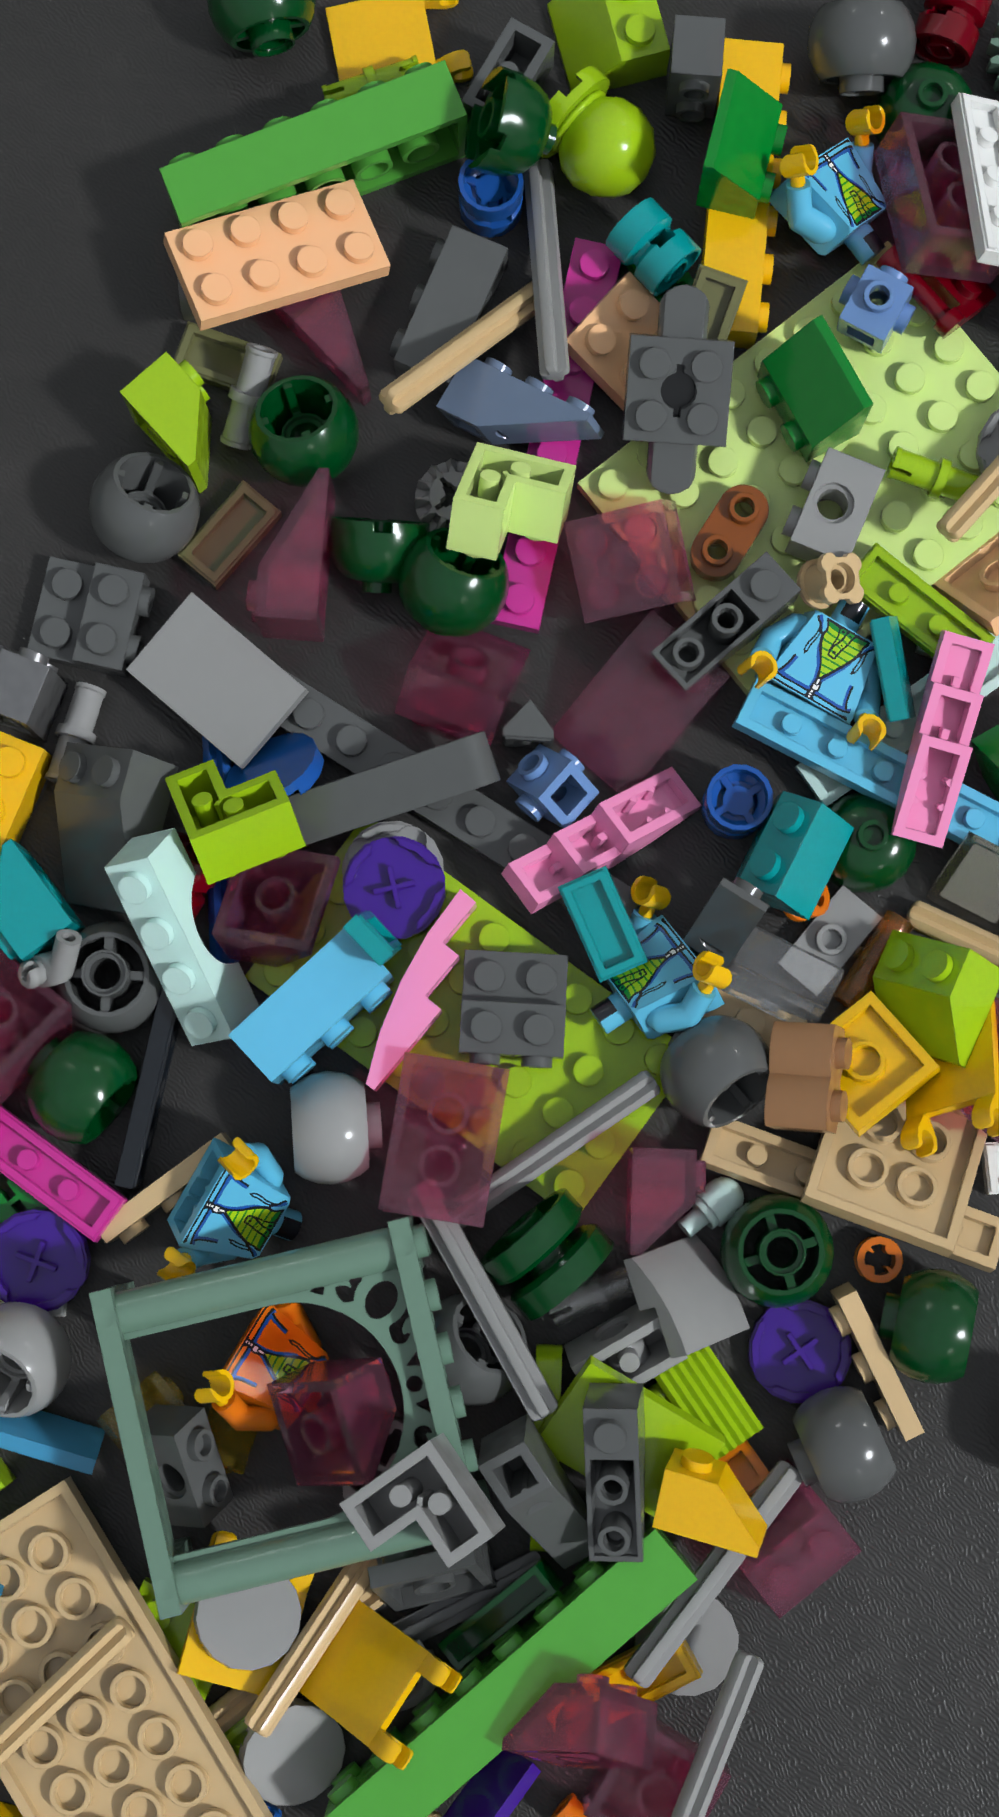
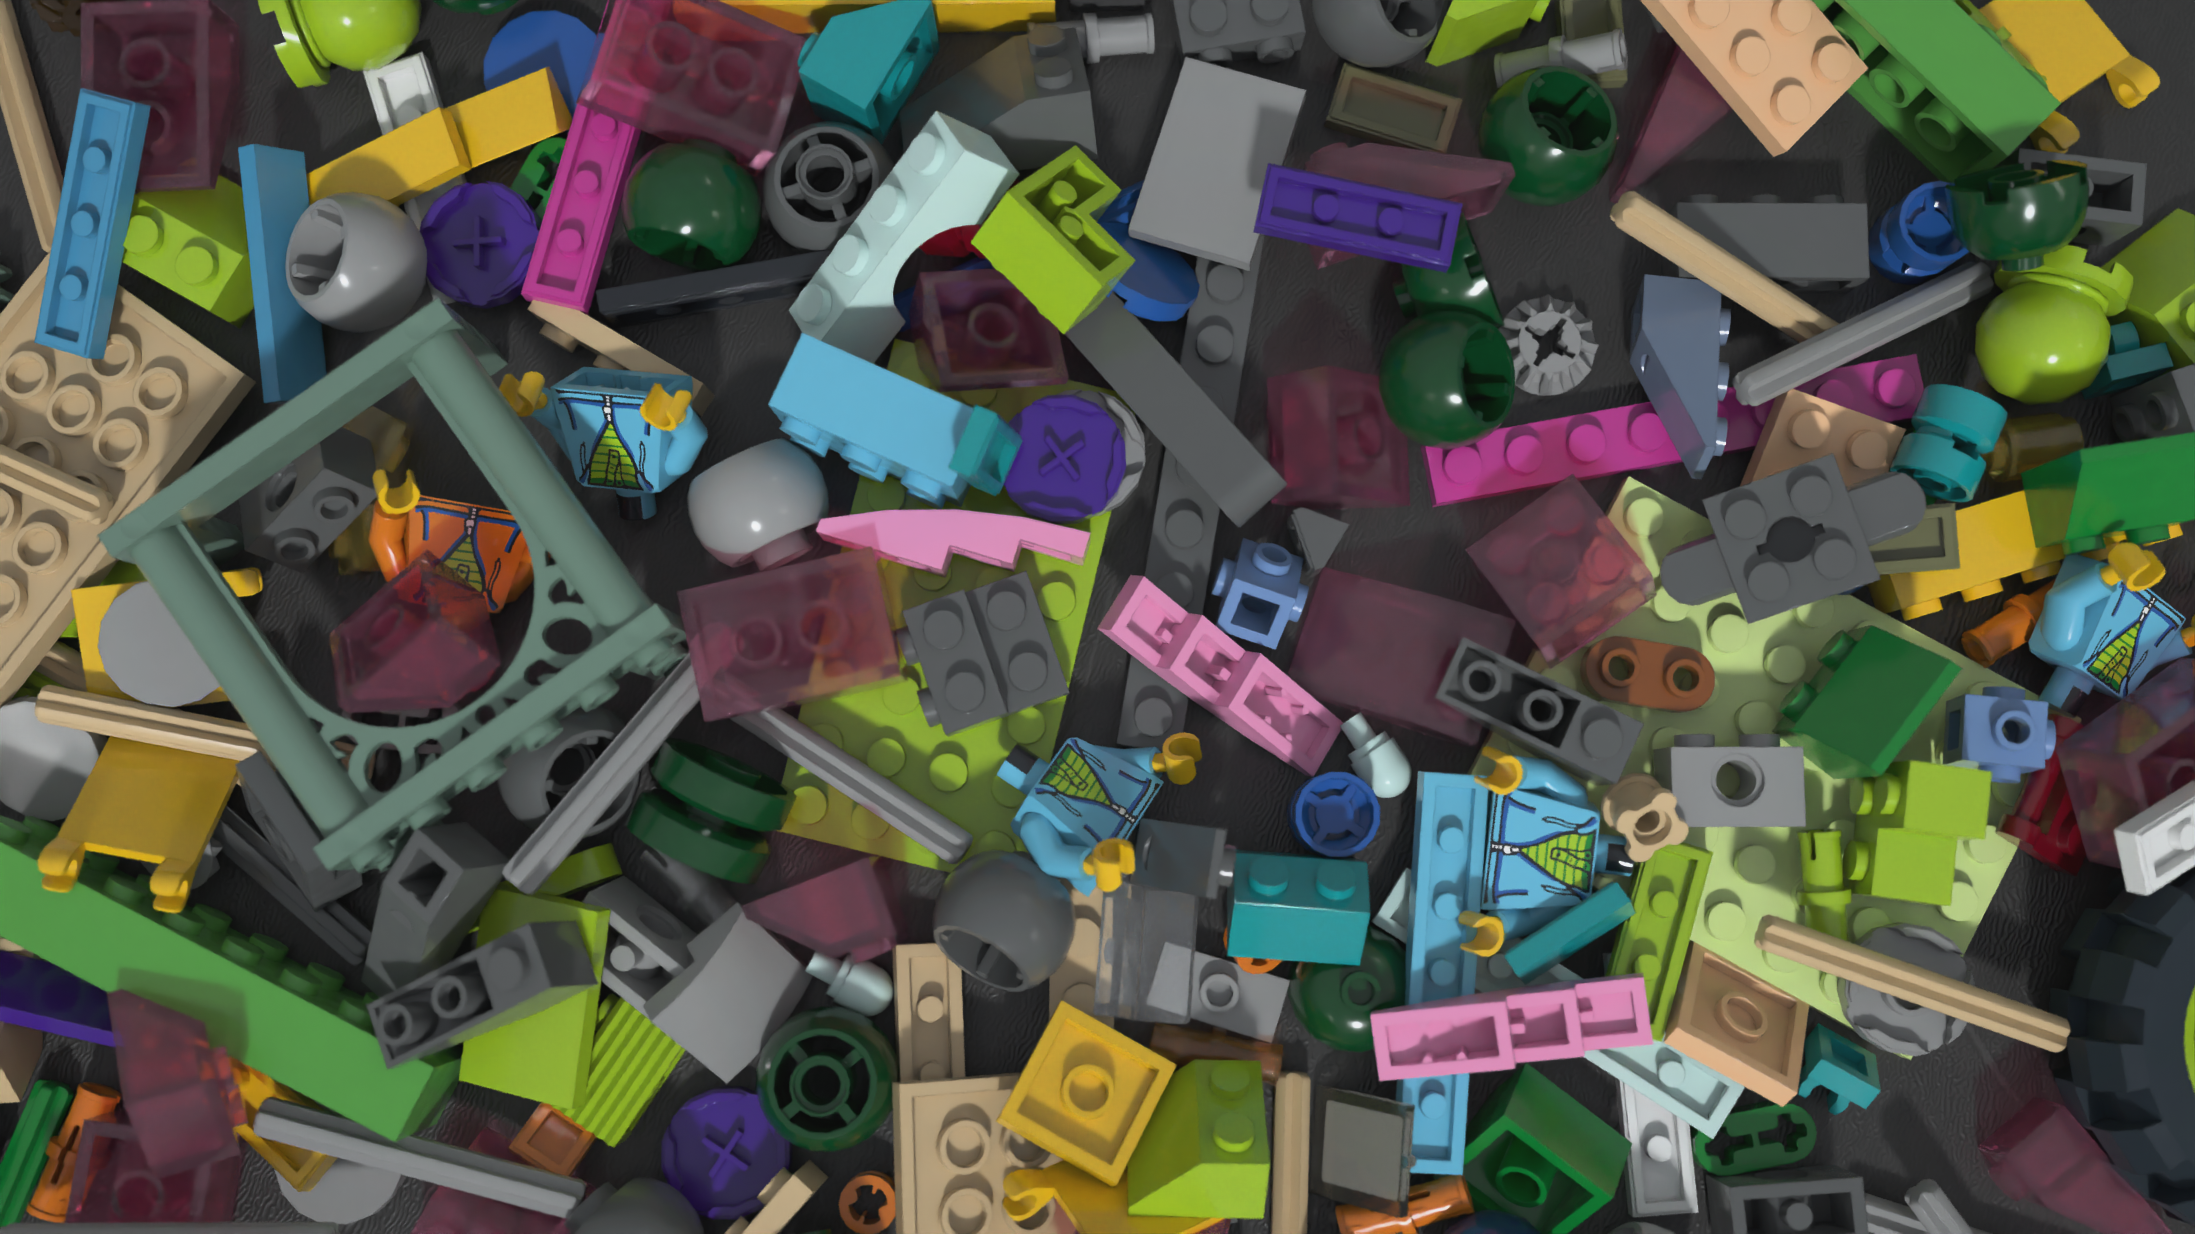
camera: 65 degrees right, 0 degrees up
(52, 966) = (808, 112): light grey arm -> none
(313, 595) = (1357, 217): none -> dark purple tile
(435, 1492) = (348, 788): light grey brick -> none
(500, 1613) = (283, 929): dark green piece -> none
(508, 494) = (1576, 391): yellowish green brick -> none
(603, 924) = (1119, 715): teal tile -> none
(647, 93) = (2128, 363): none -> teal tile
(678, 185) = (2030, 443): none -> clear yellow brick
(707, 753) = (1377, 758): none -> light aqua cylinder
(708, 1504) = (488, 1120): yellow slope -> none
(801, 263) = (2006, 629): none -> orange pin
(806, 1077) = (1037, 1030): medium nougat brick -> none
(918, 397) = (1911, 829): none -> lime brick

